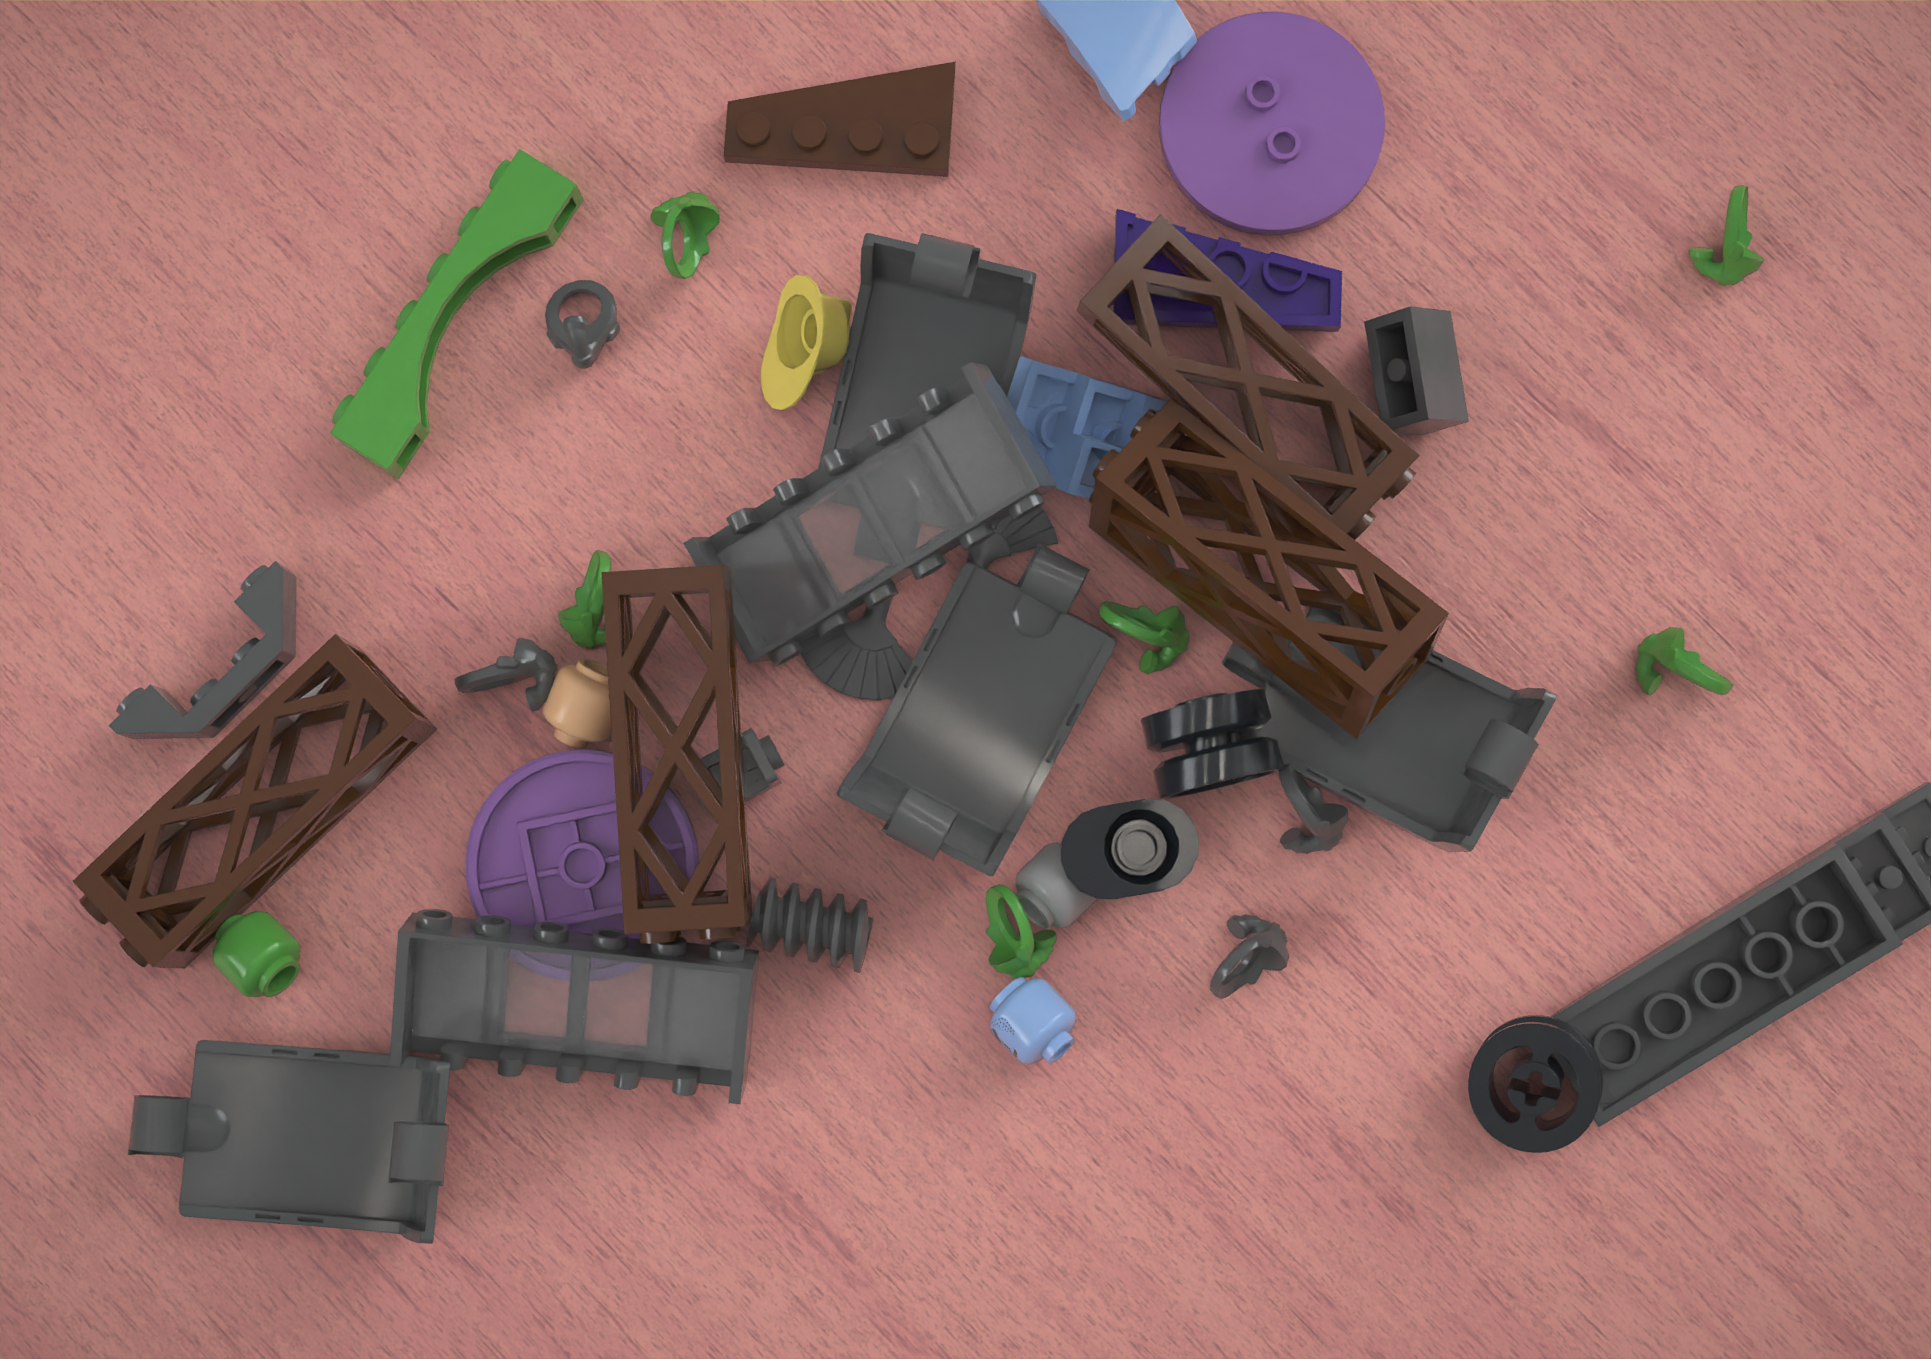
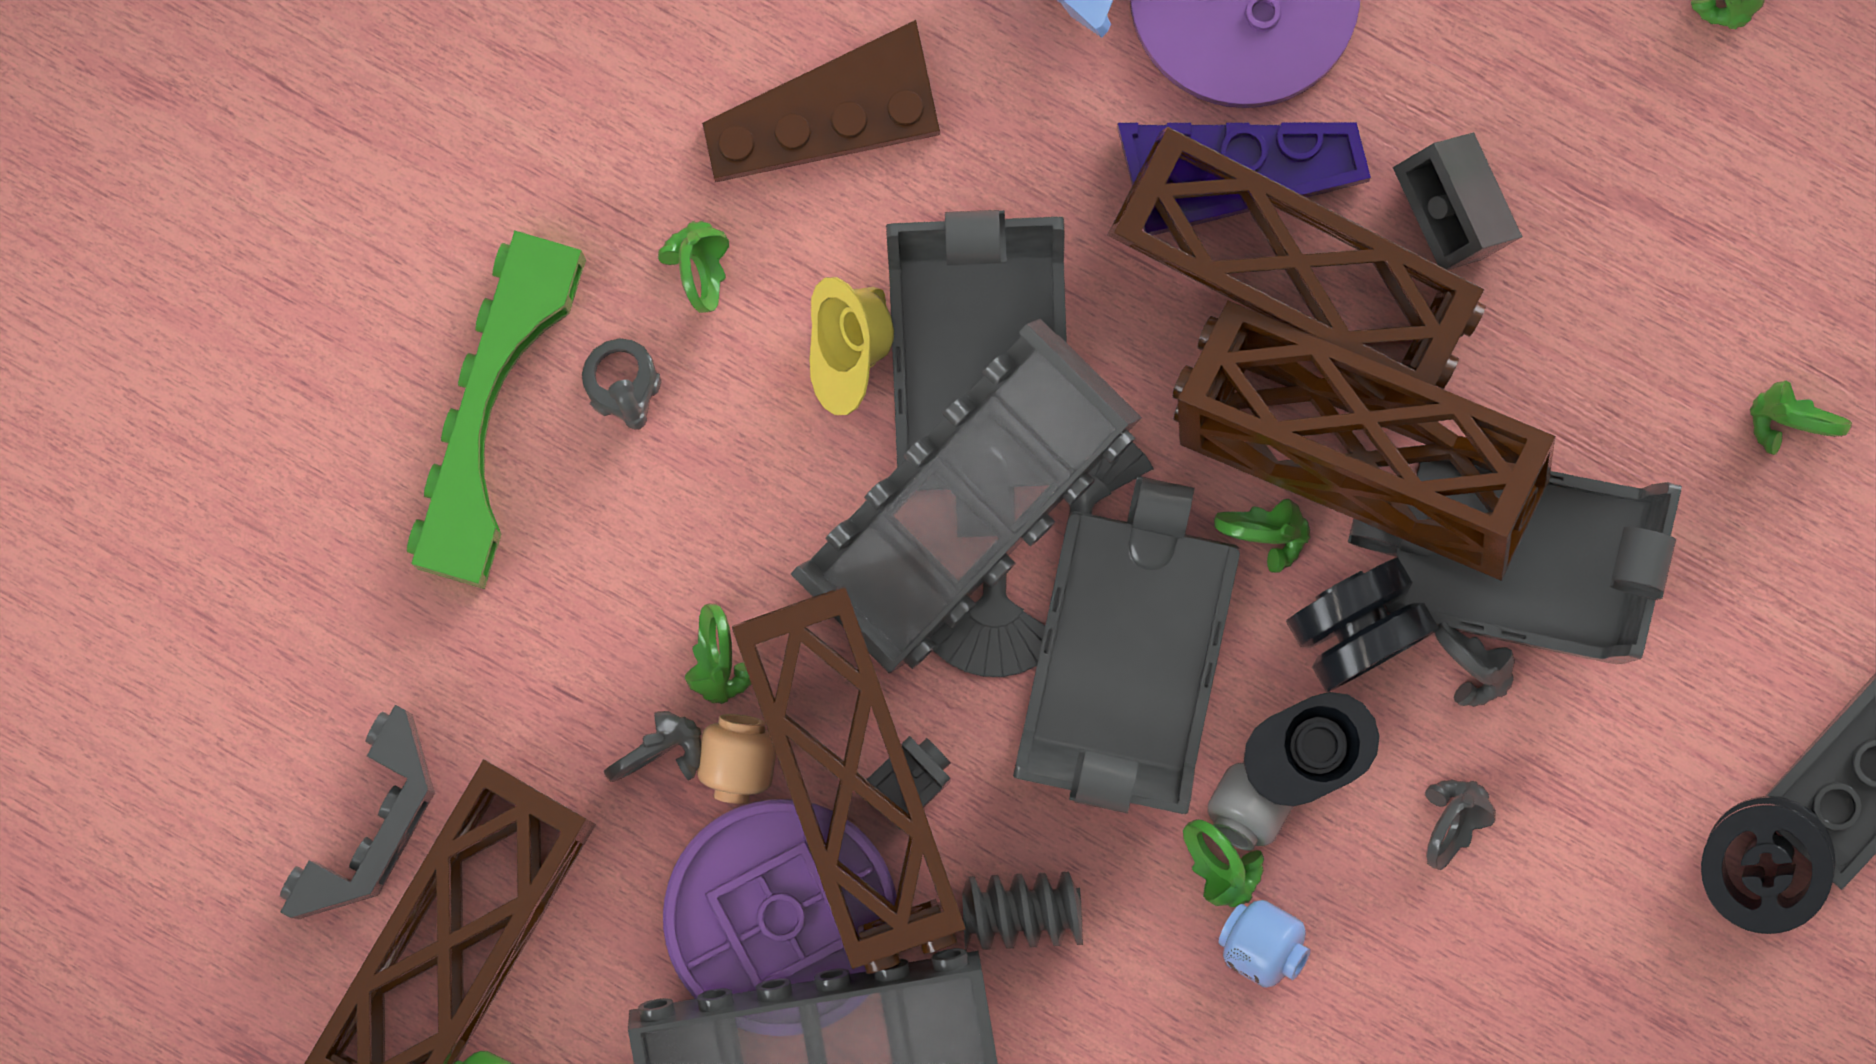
camera: 10 degrees left, 0 degrees up
(1074, 419) = (1140, 342): light blue slope -> none

